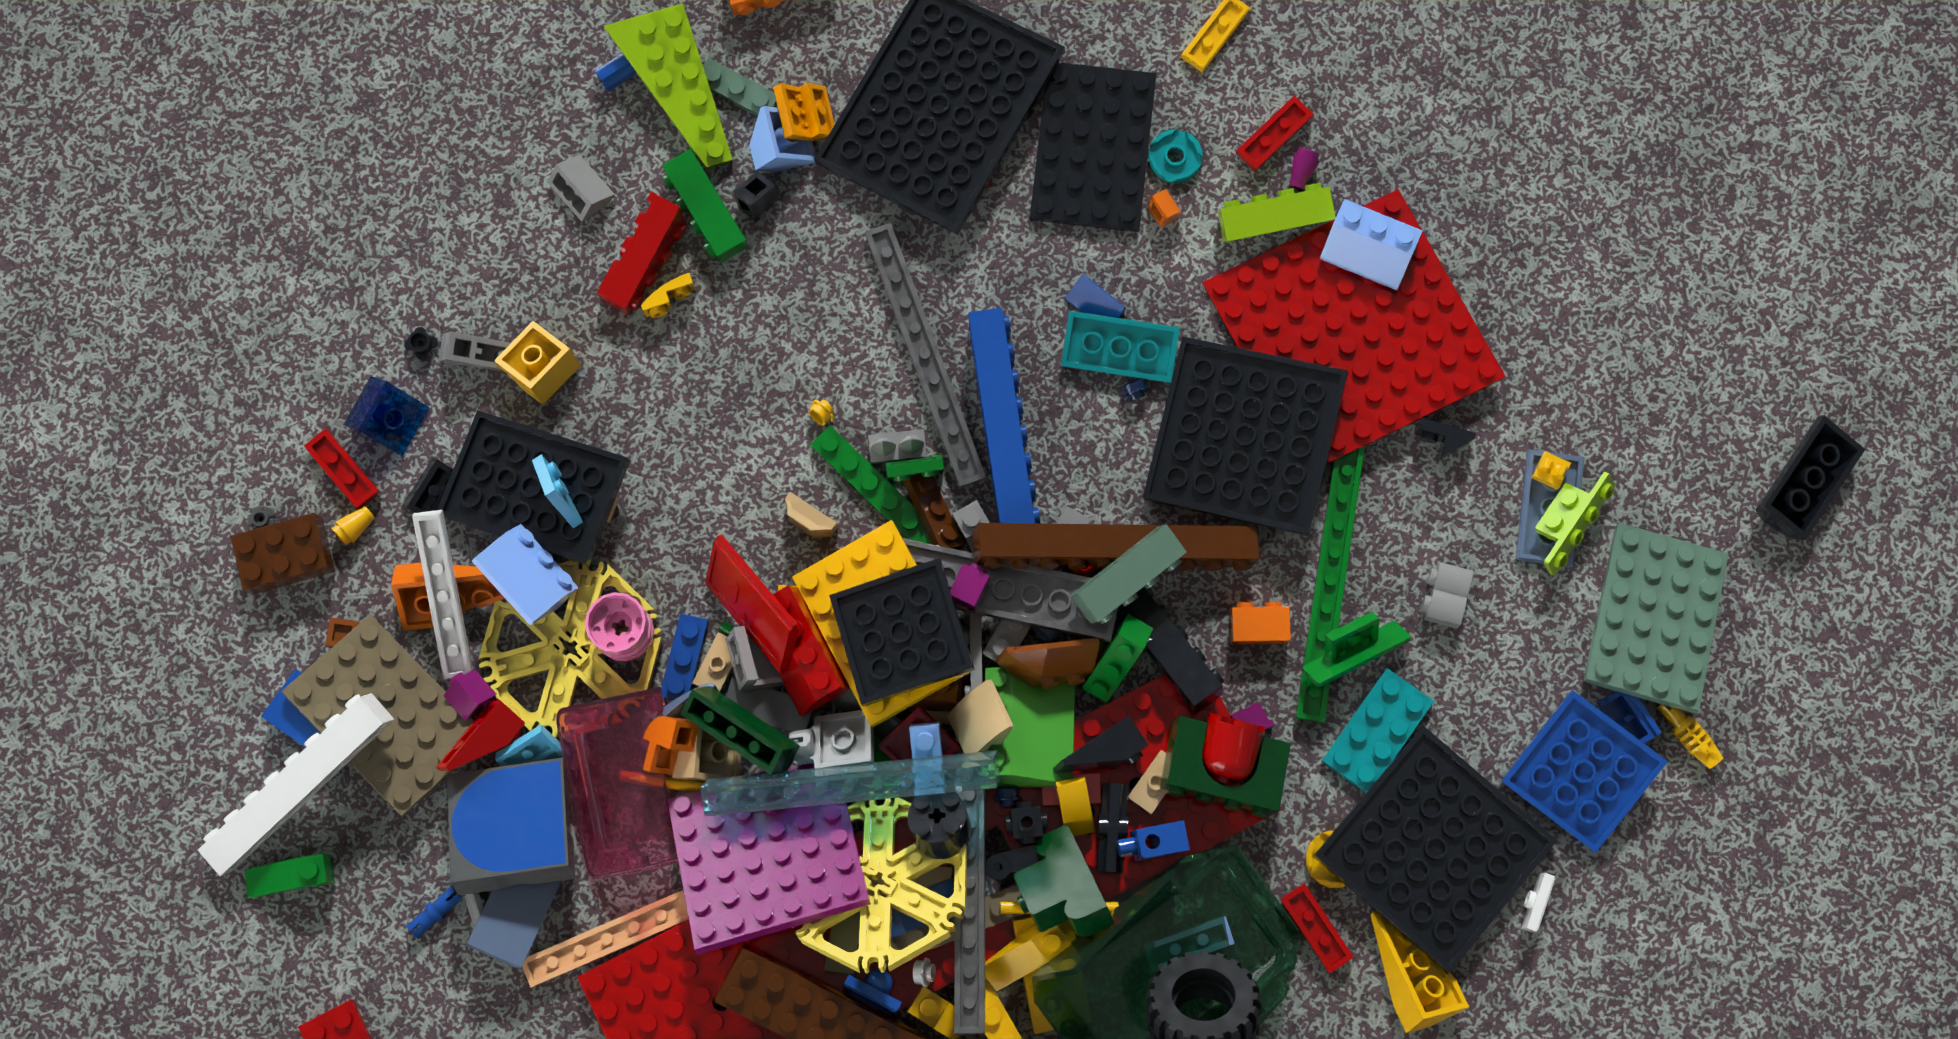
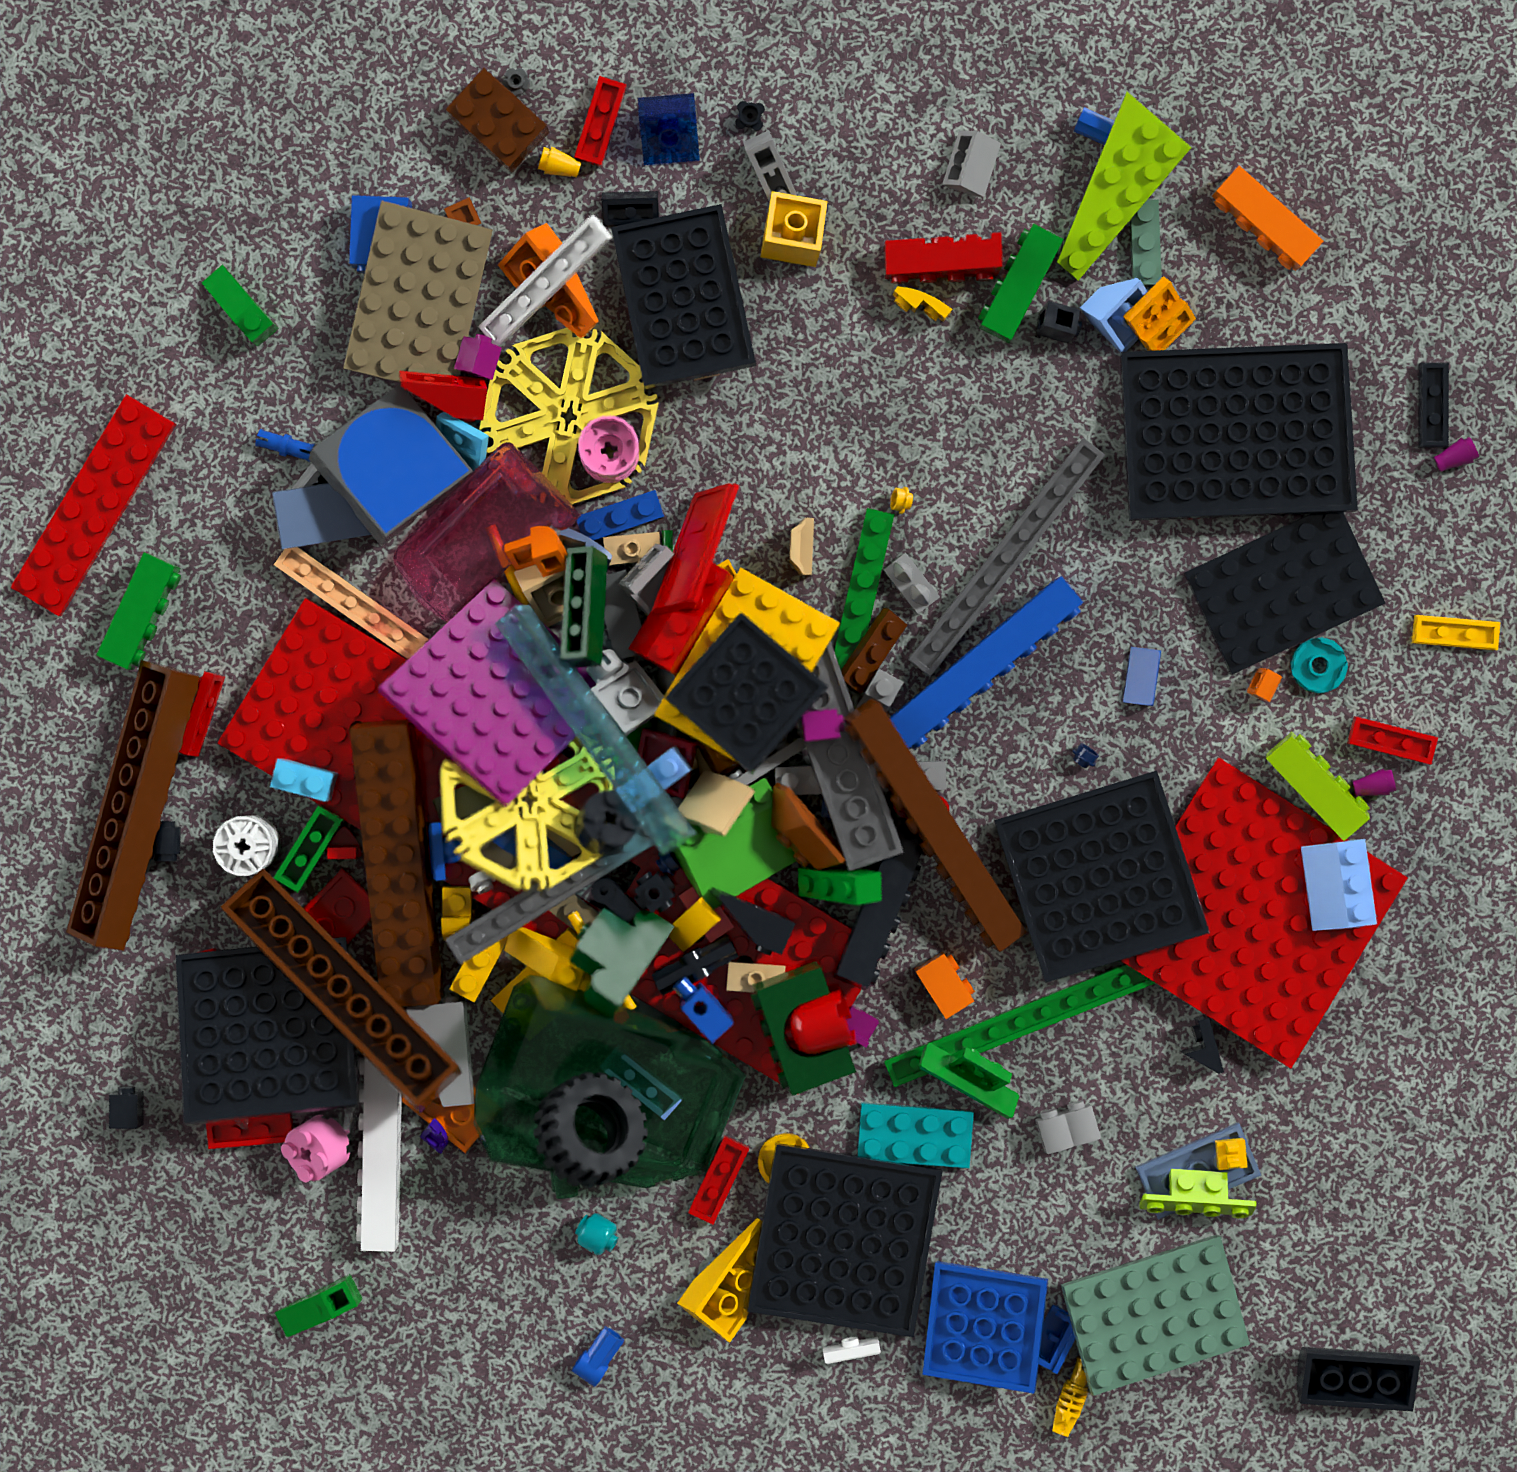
camera: 60 degrees right, 10 degrees up
(295, 784) = (314, 264): white brick -> none
(525, 574) = (603, 341): light blue slope -> none
(556, 490) = (689, 320): medium azure wing -> none
(926, 466) = (906, 620): green plate -> none
(1120, 346) = (1115, 721): teal plate -> none
(1128, 574) = (913, 853): sand green brick -> none

